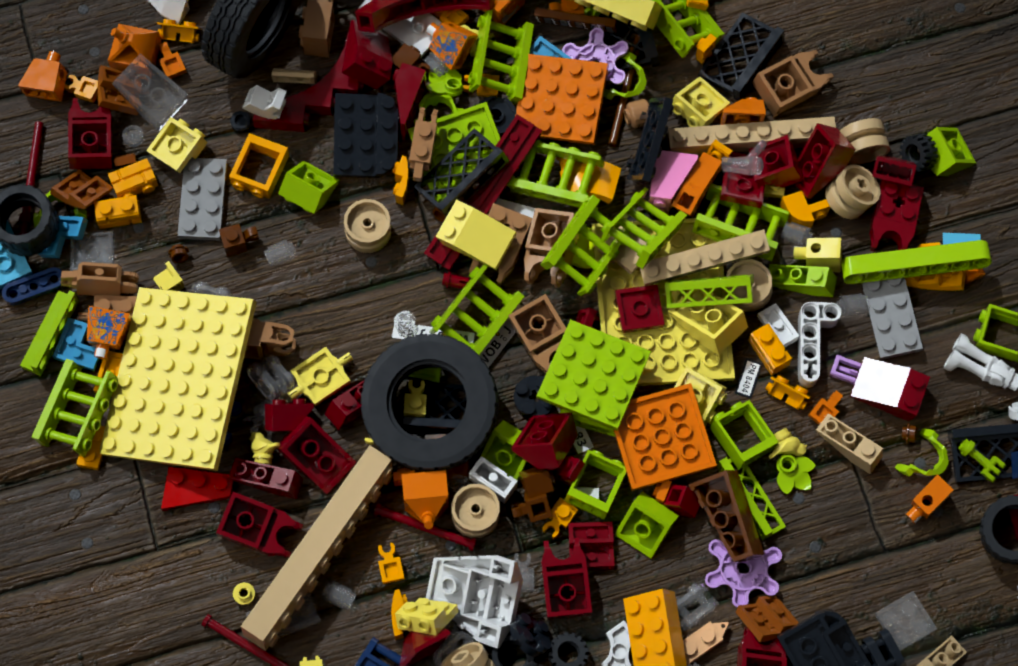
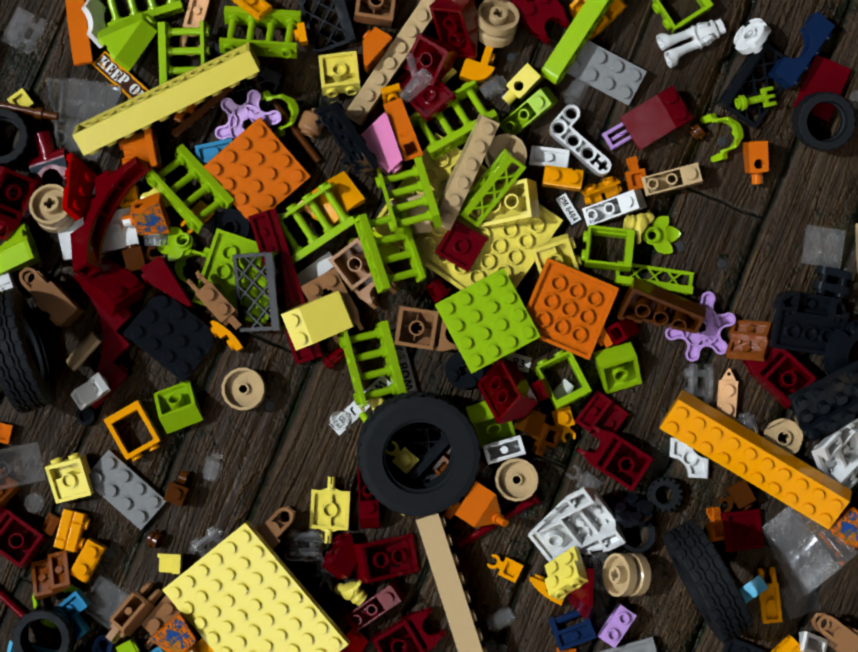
camera: 45 degrees left, 15 degrees up
(785, 414) = (614, 207): none -> white slope

